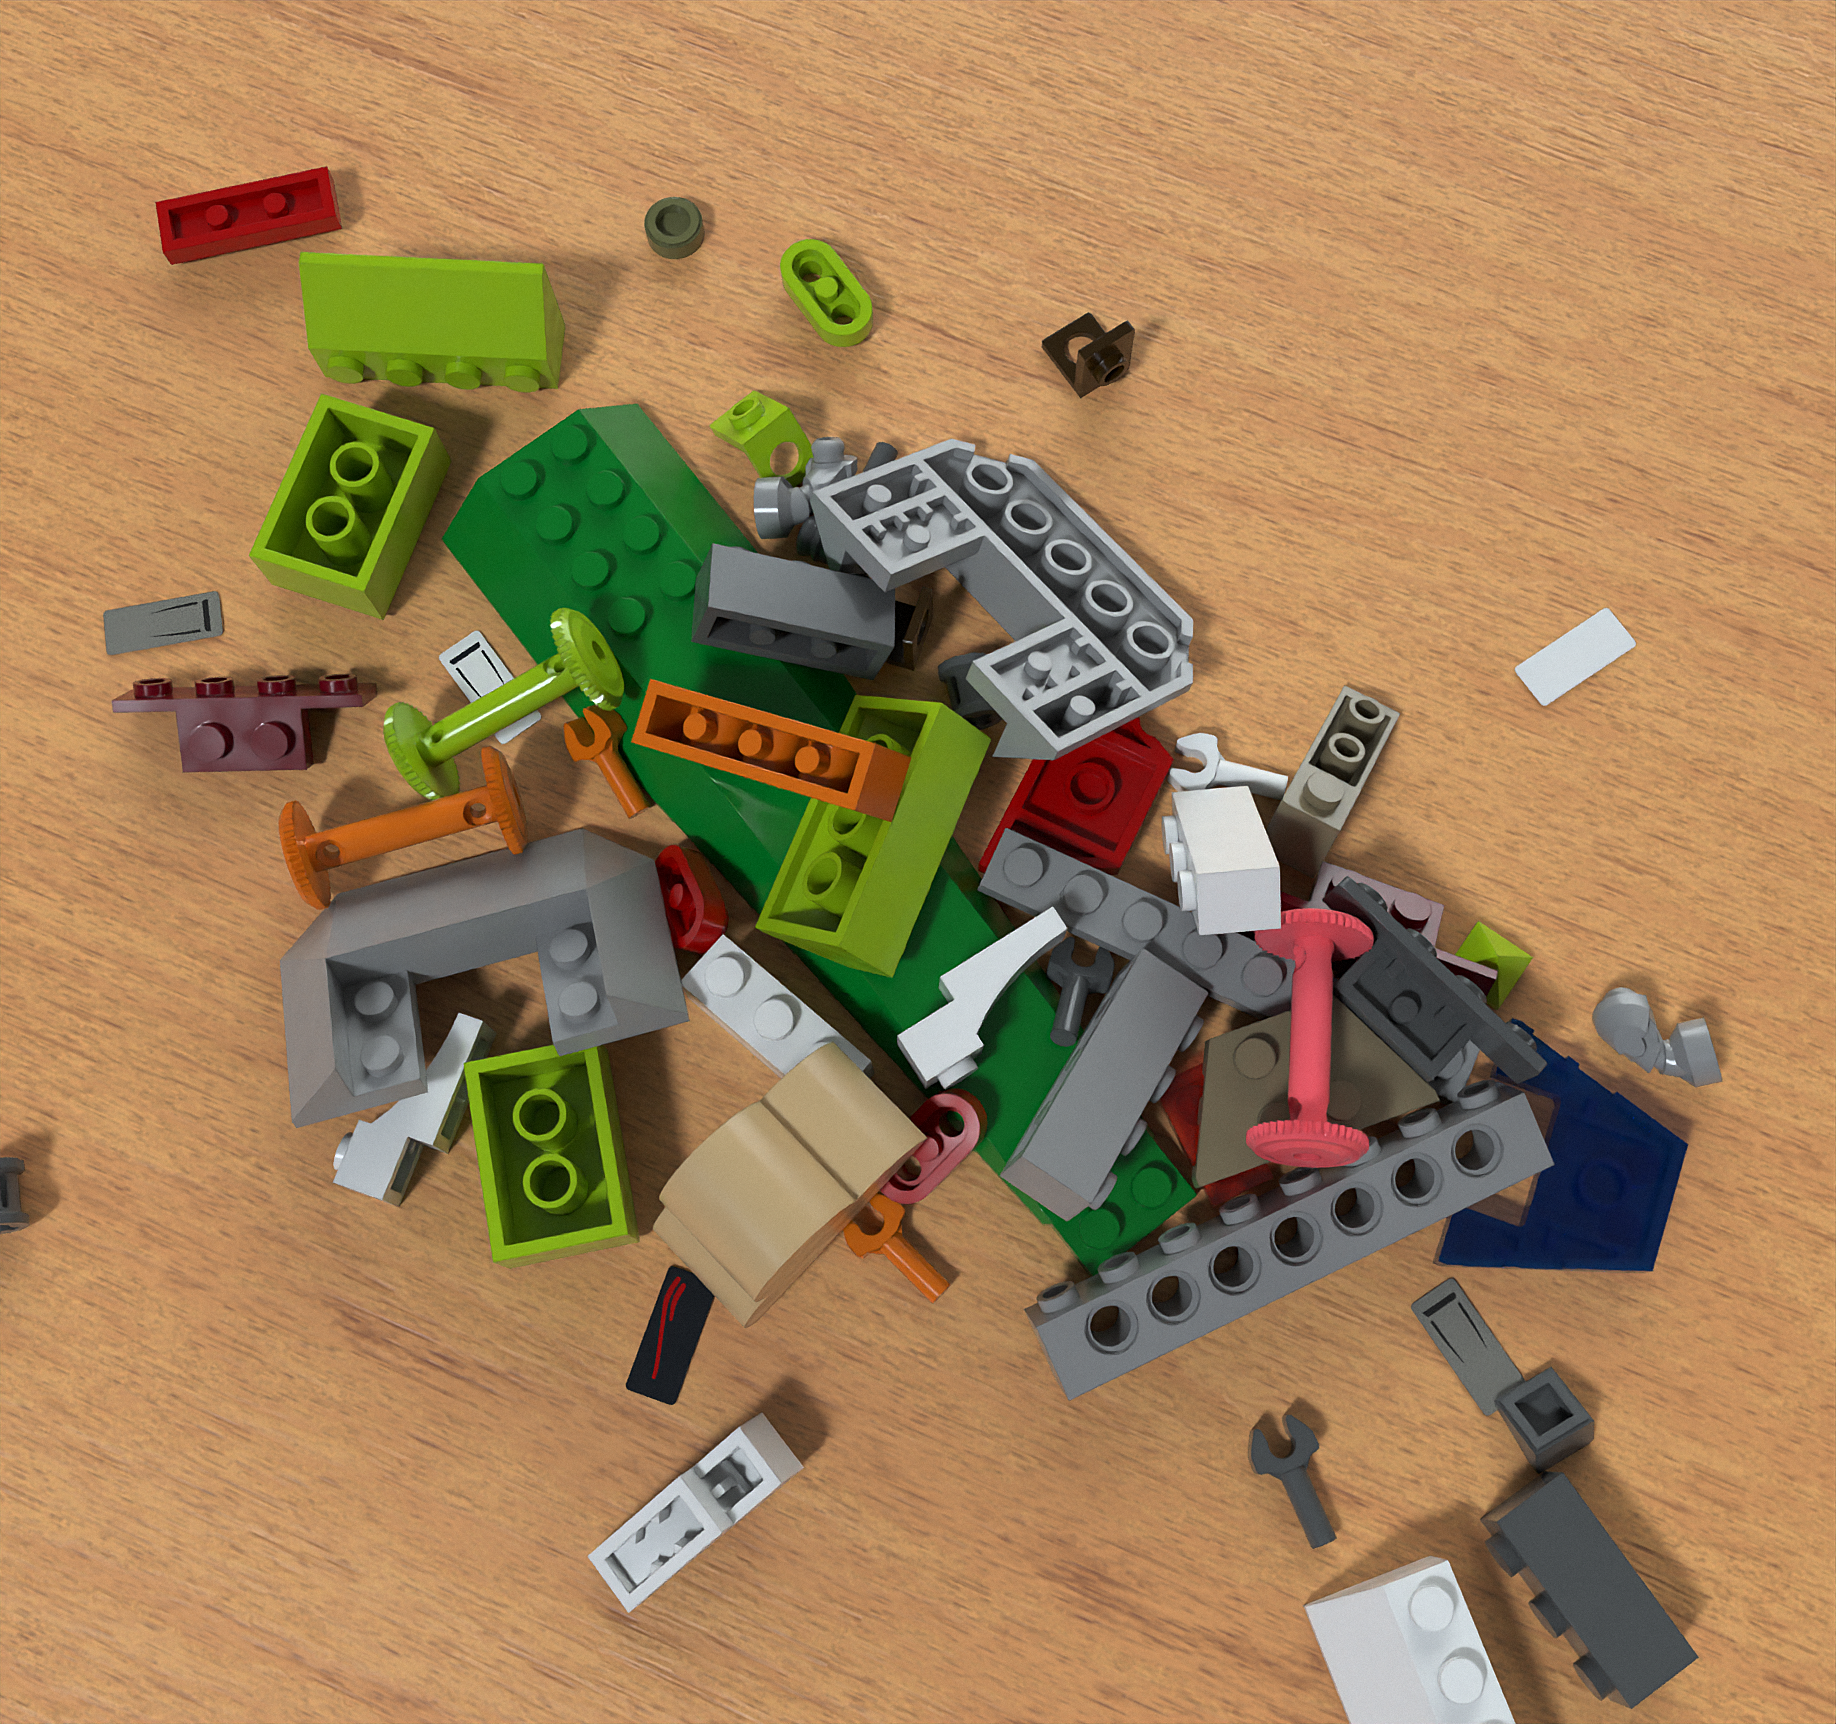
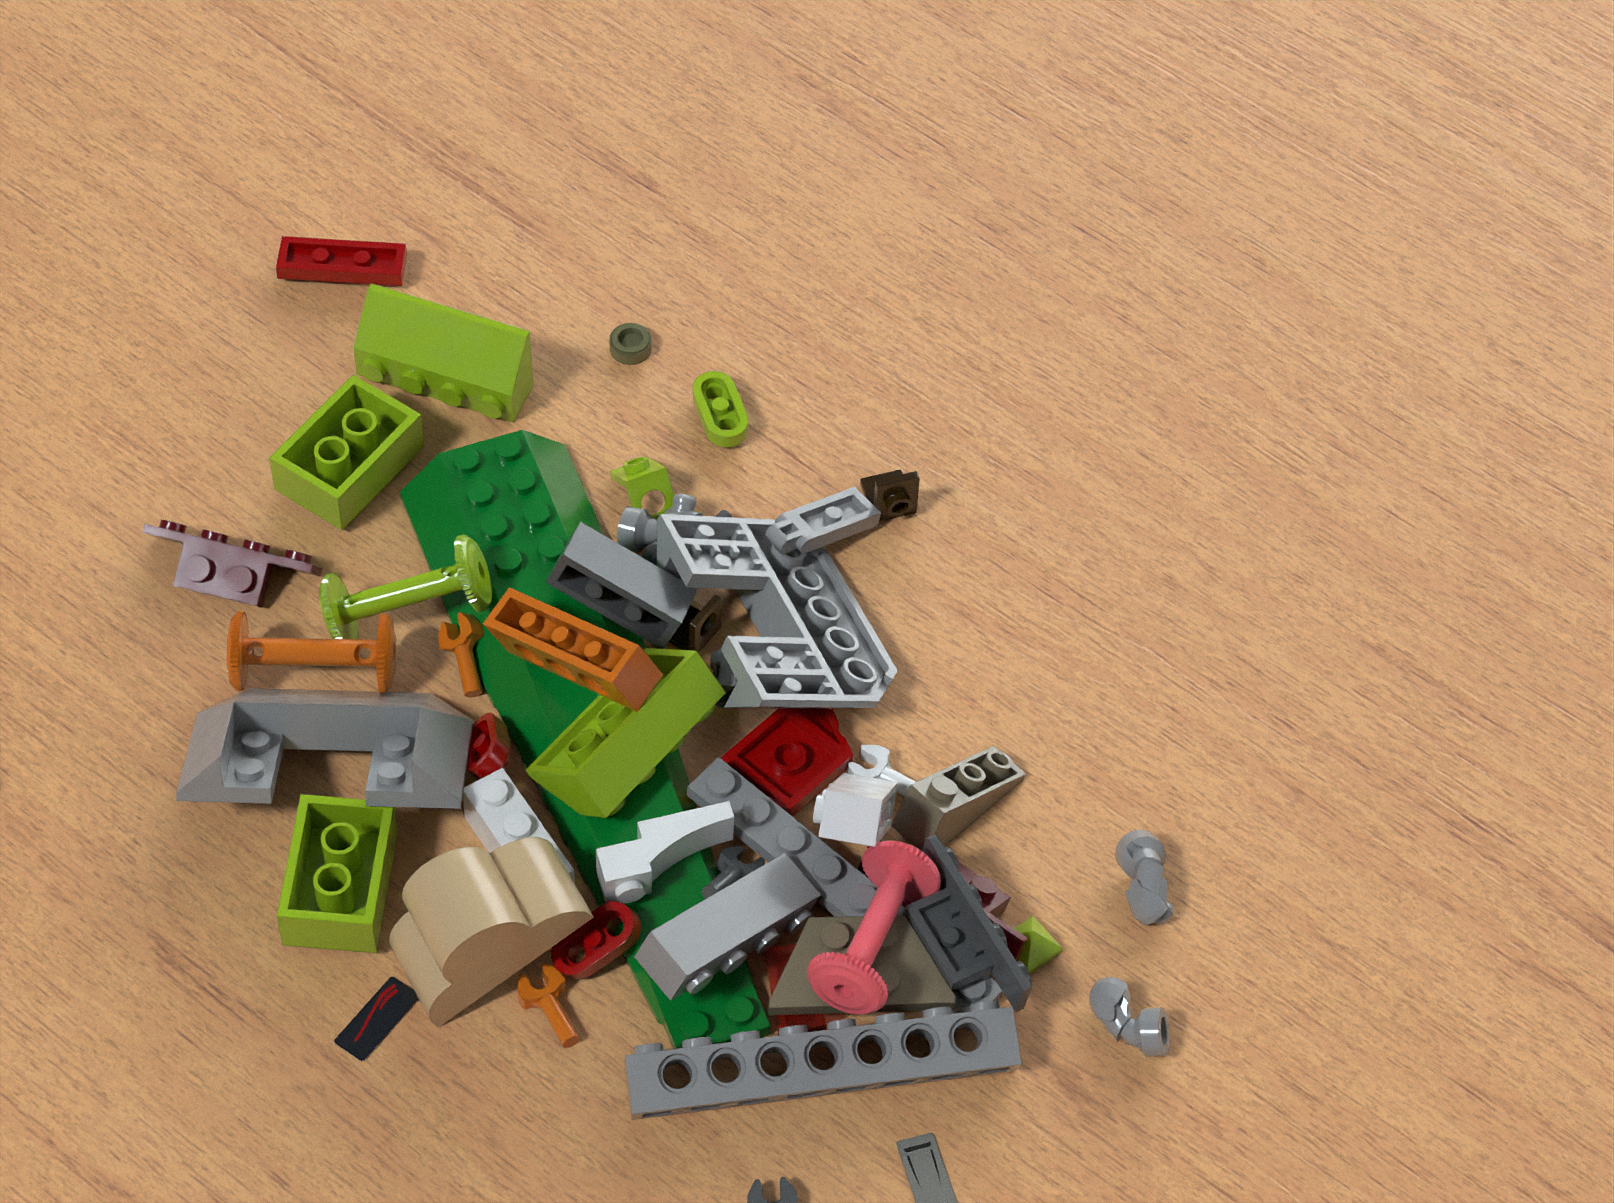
camera: 10 degrees right, 20 degrees down
(162, 623) = (191, 495): clear smoke sticker -> none
(384, 1153) = (259, 834): white slope -> none
(480, 671) = (391, 571): white sticker -> none
(695, 1511) = (354, 1117): white slope -> none
(1020, 425) = (823, 522): none -> light grey hinge
(1575, 656) = (1165, 773): white sticker -> none
(1598, 797) = (1143, 860): none -> light grey arm
(1600, 1200) = (1049, 1099): clear blue wing -> none

